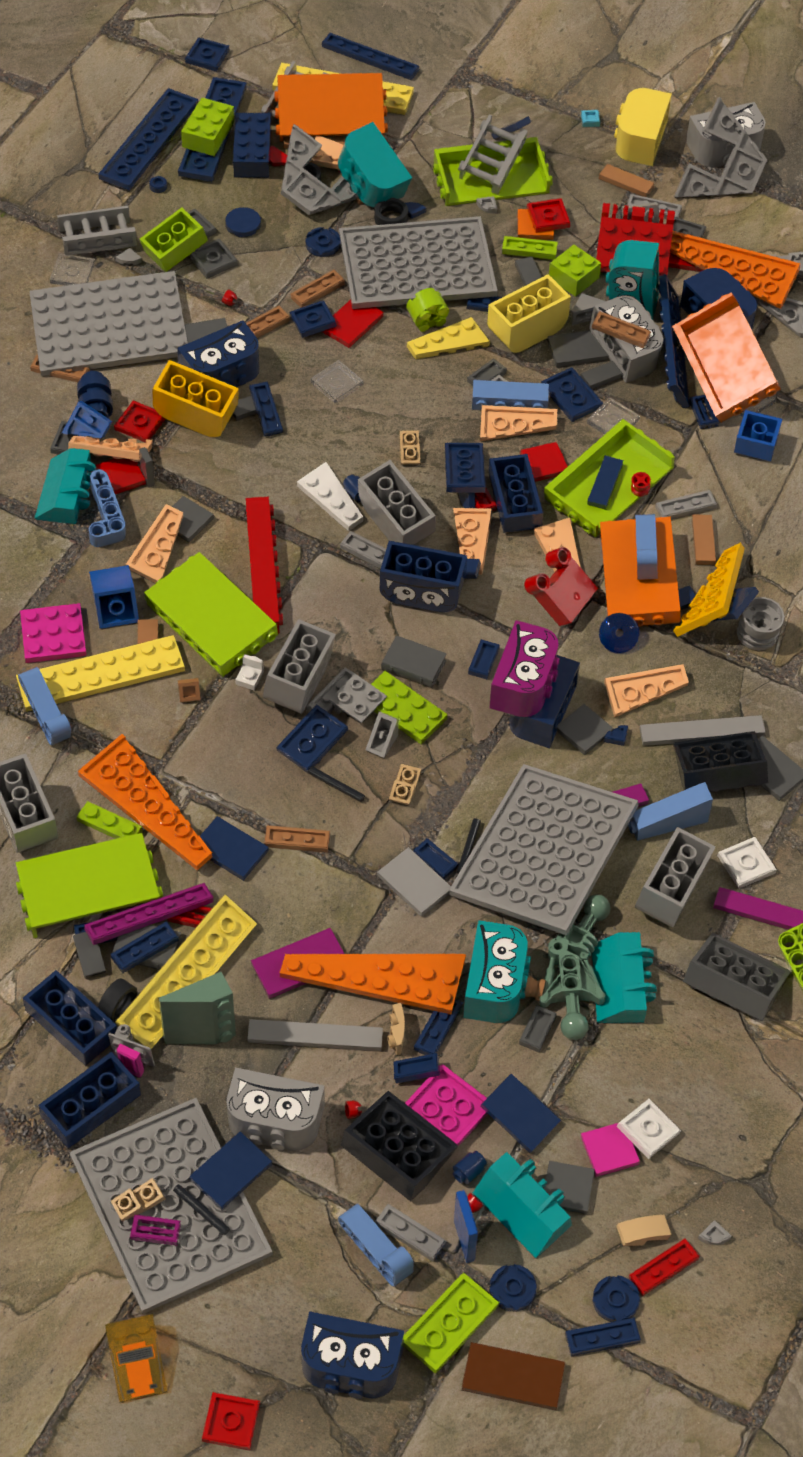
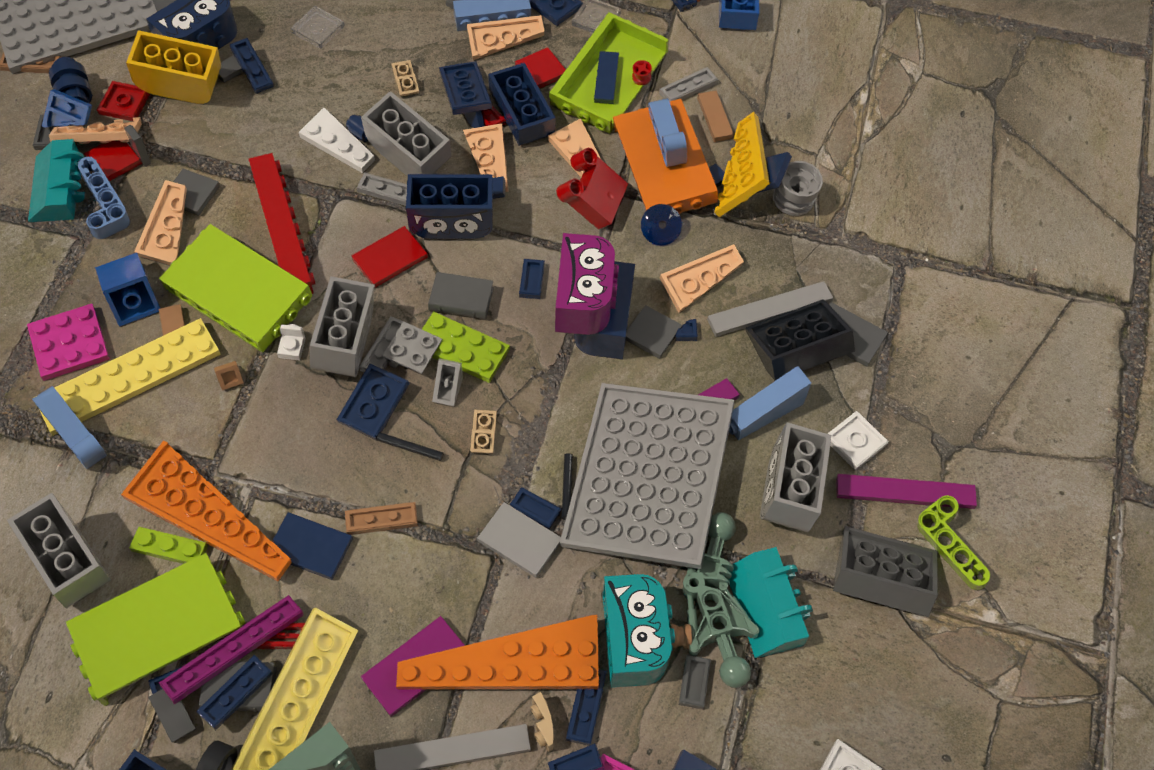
camera: 15 degrees left, 5 degrees up
(356, 613) = (389, 256): none -> red tile

